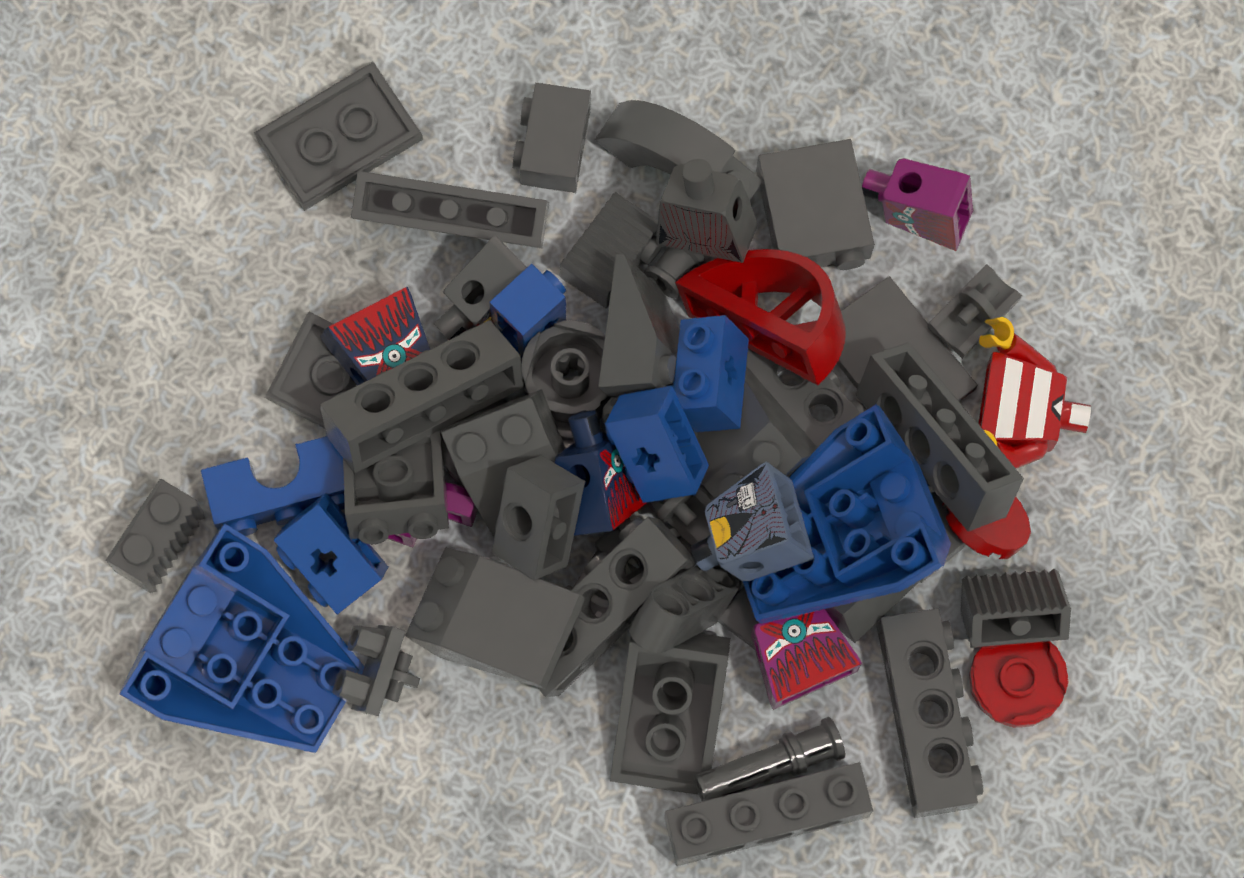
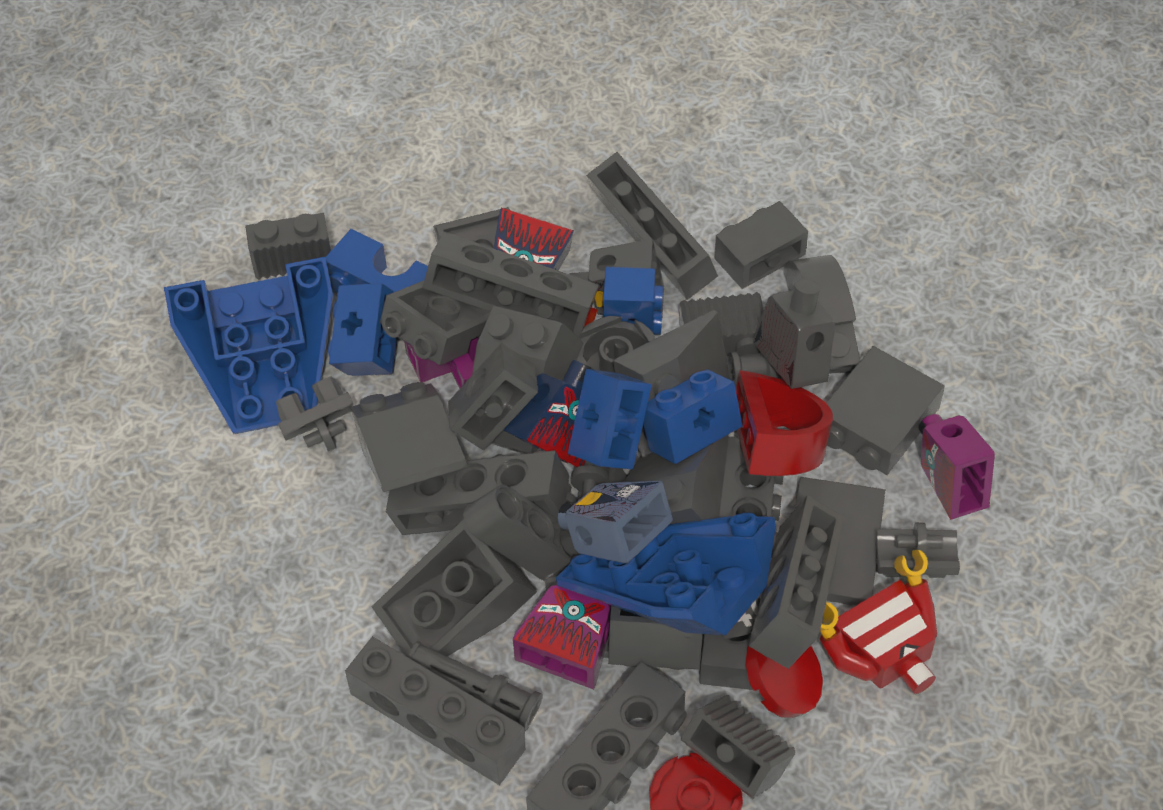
camera: 50 degrees right, 20 degrees down
(337, 135) = (654, 149): dark grey tile -> none

